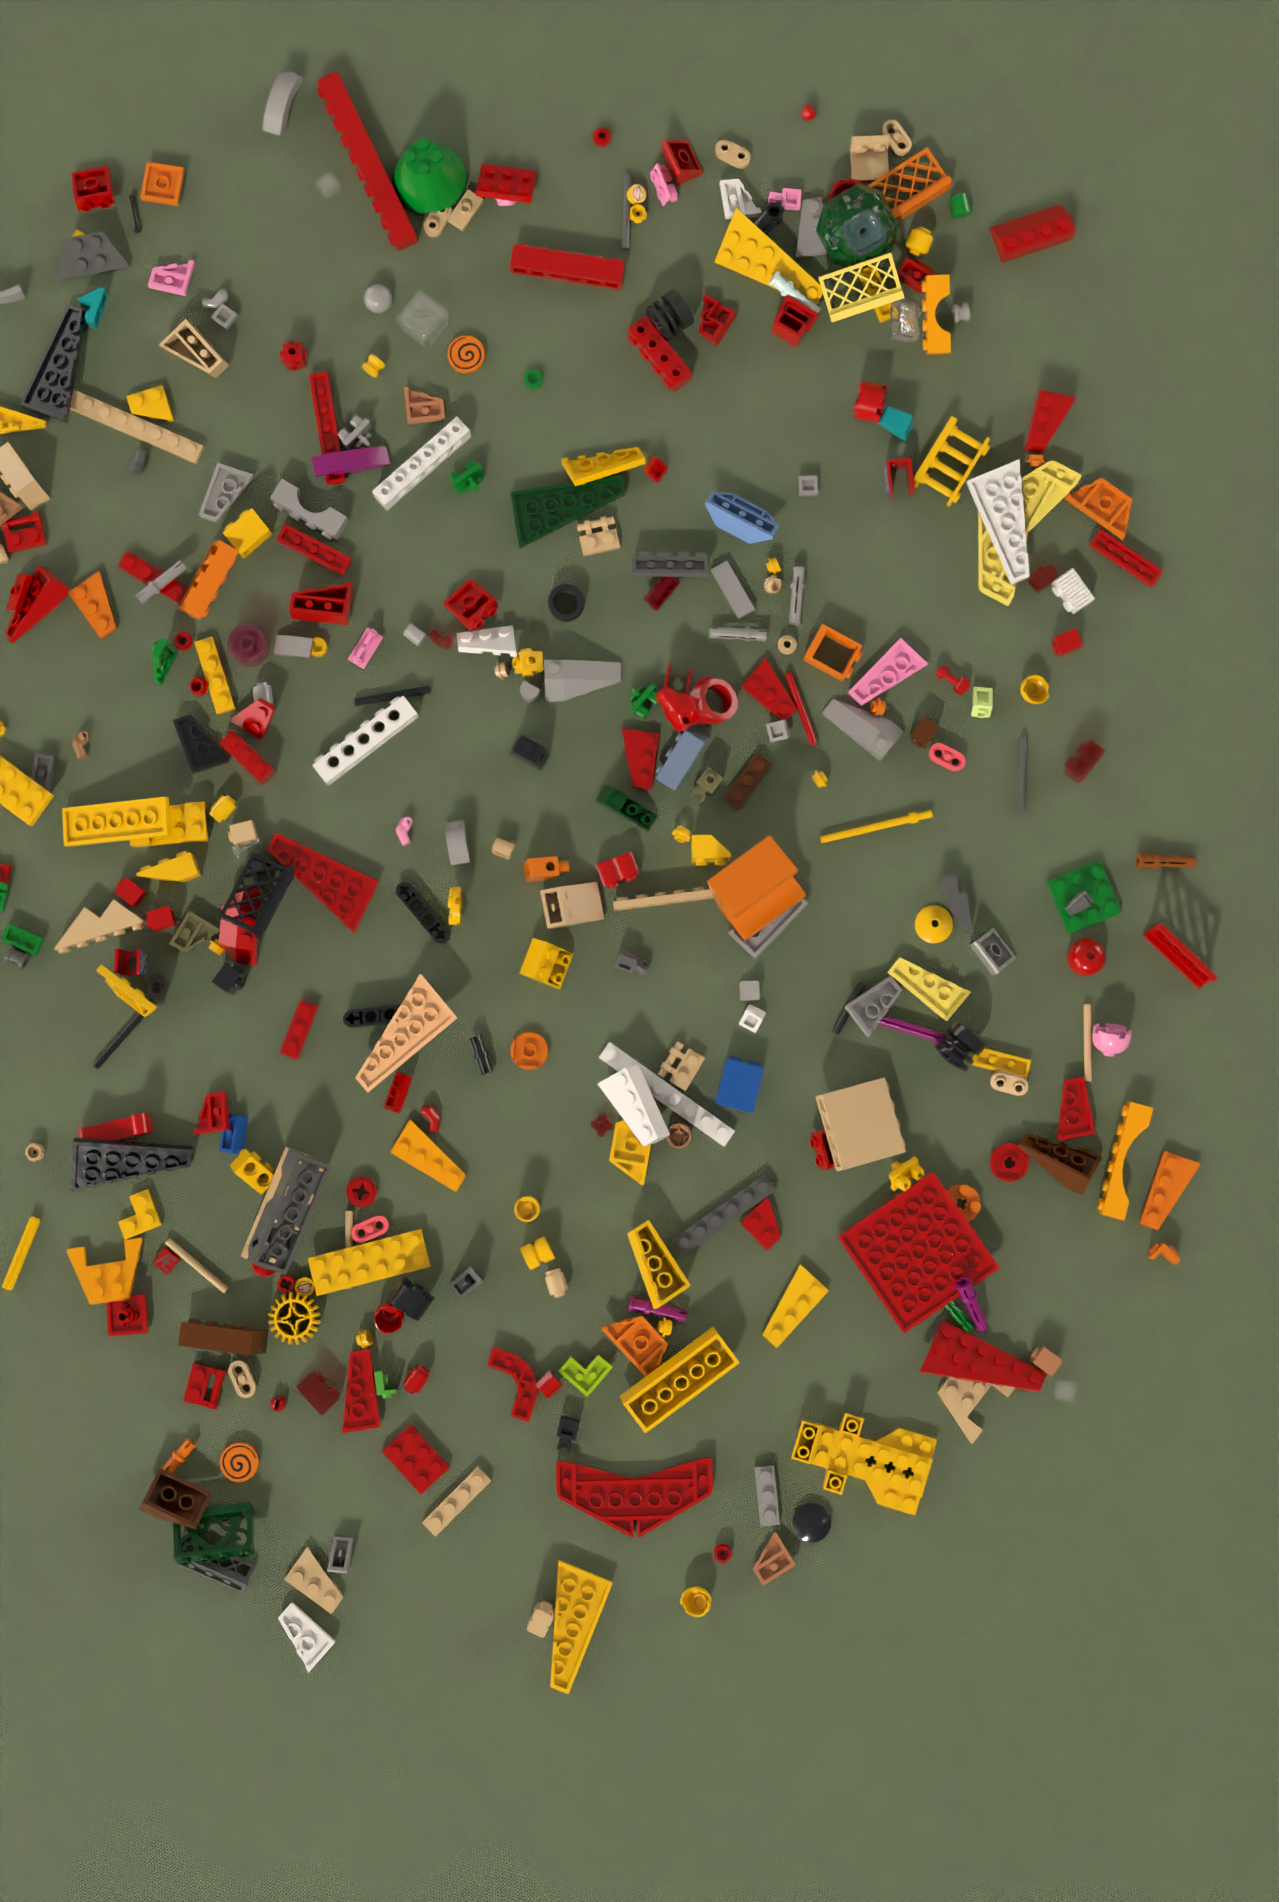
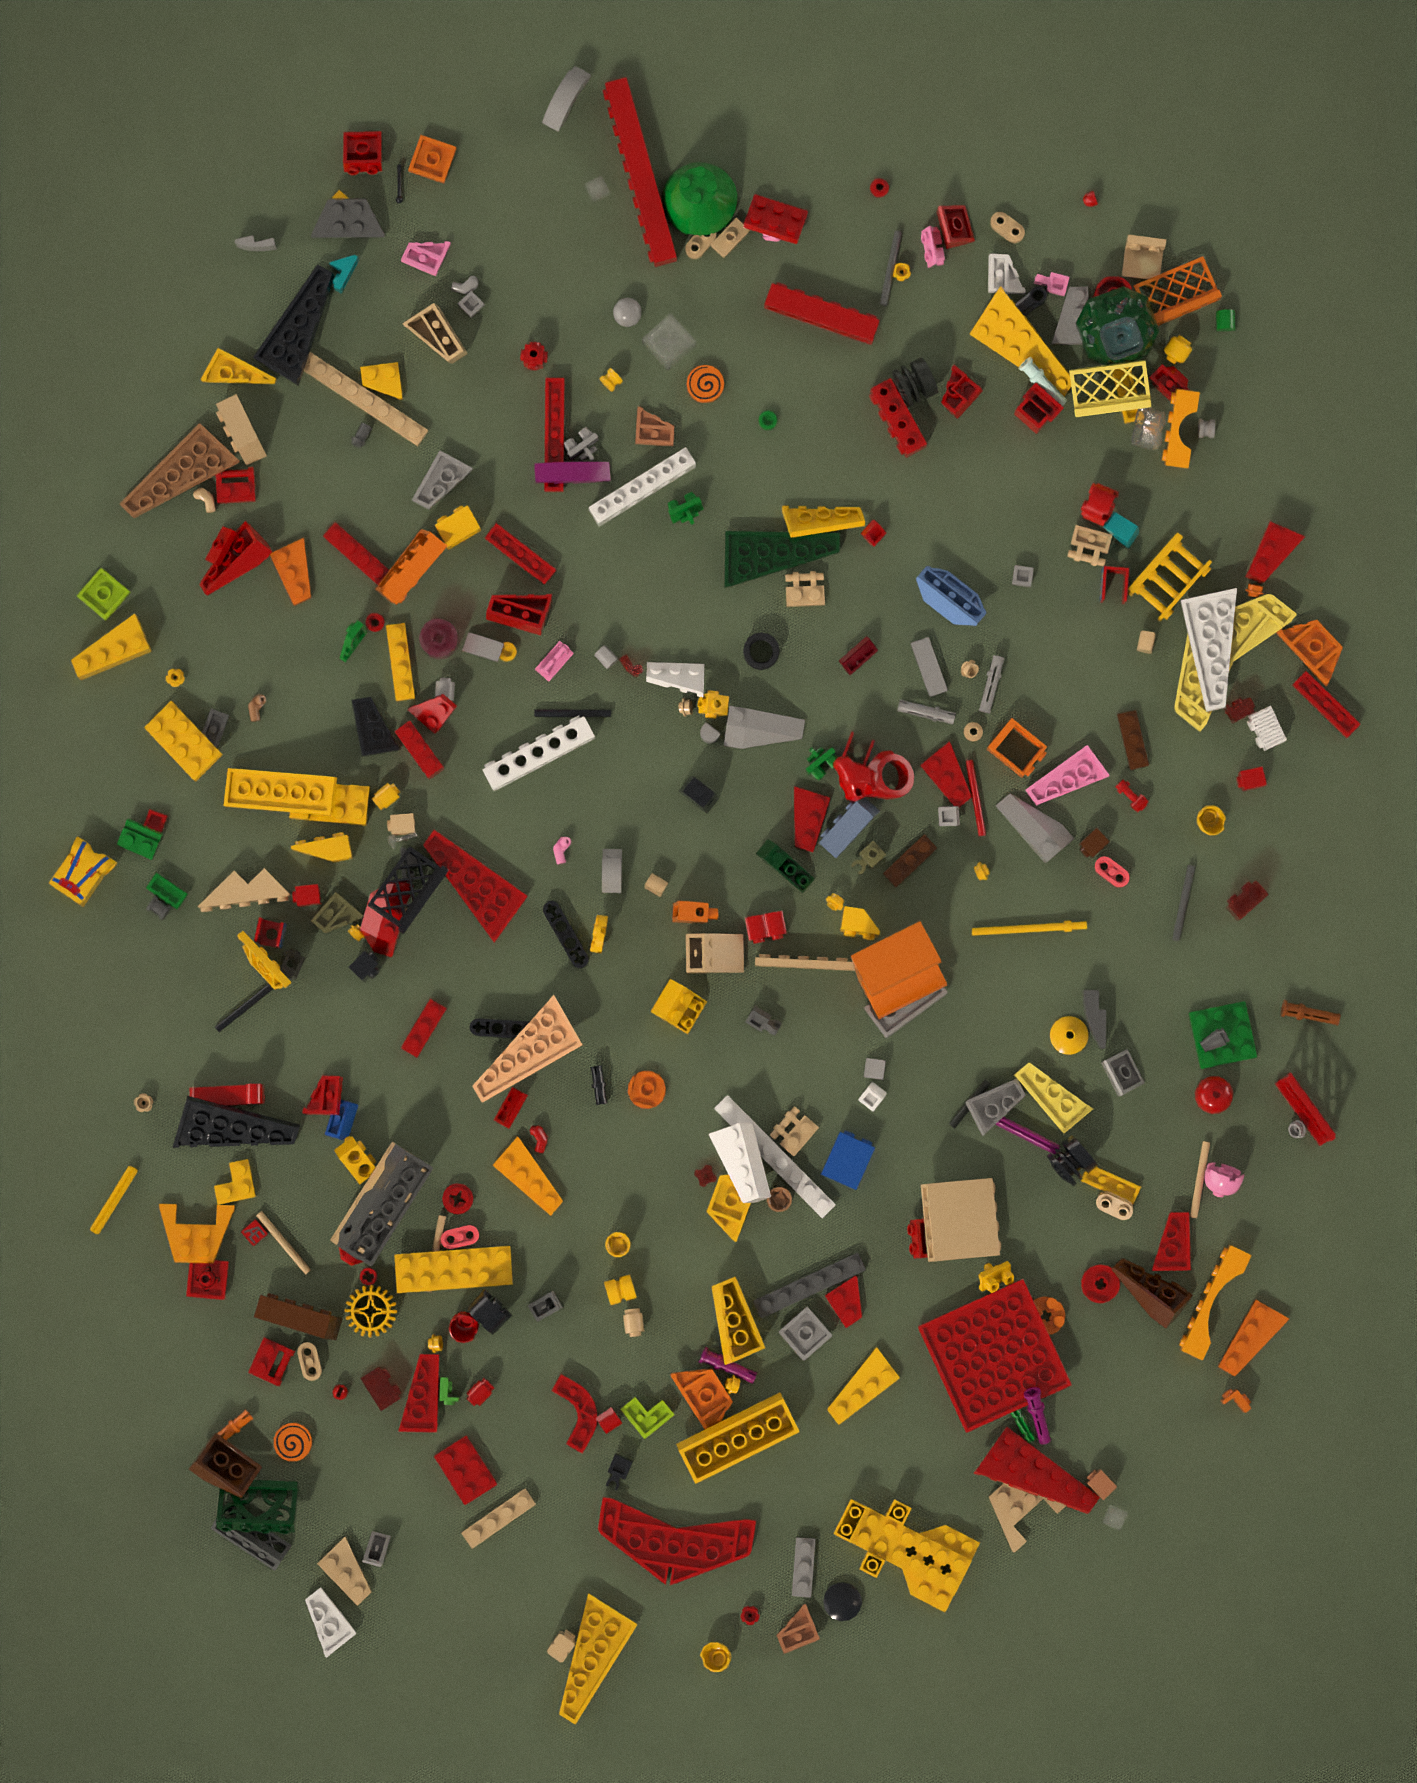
camera: 10 degrees right, 0 degrees up
(130, 892) = (281, 862): red brick -> none
(160, 582) = (364, 560): light grey pin -> none
(194, 686) = (379, 667): red plate -> none
(305, 1286) = (386, 1282): tile -> none
(329, 521) = (540, 529): light grey arch -> none
(471, 605) = (667, 637): red plate -> none
(636, 194) = (903, 252): yellow tile -> none
(670, 566) = (870, 634): dark grey fence -> none
(727, 1263) = (805, 1333): none -> light grey plate
(773, 566) = (973, 650): yellow plate -> none
(868, 439) = (1092, 540): none -> tan plate
(878, 707) = (1052, 810): orange plate -> none
(898, 138) = (1174, 240): tan plate -> none
(939, 528) = (1146, 642): none -> tan brick
(943, 626) = (1132, 740): none -> reddish brown plate
(982, 702) = (1156, 823): yellowish green bracket -> none
(1032, 233) = (1293, 359): red slope -> none
(1171, 978) = (1297, 1129): none -> light grey plate

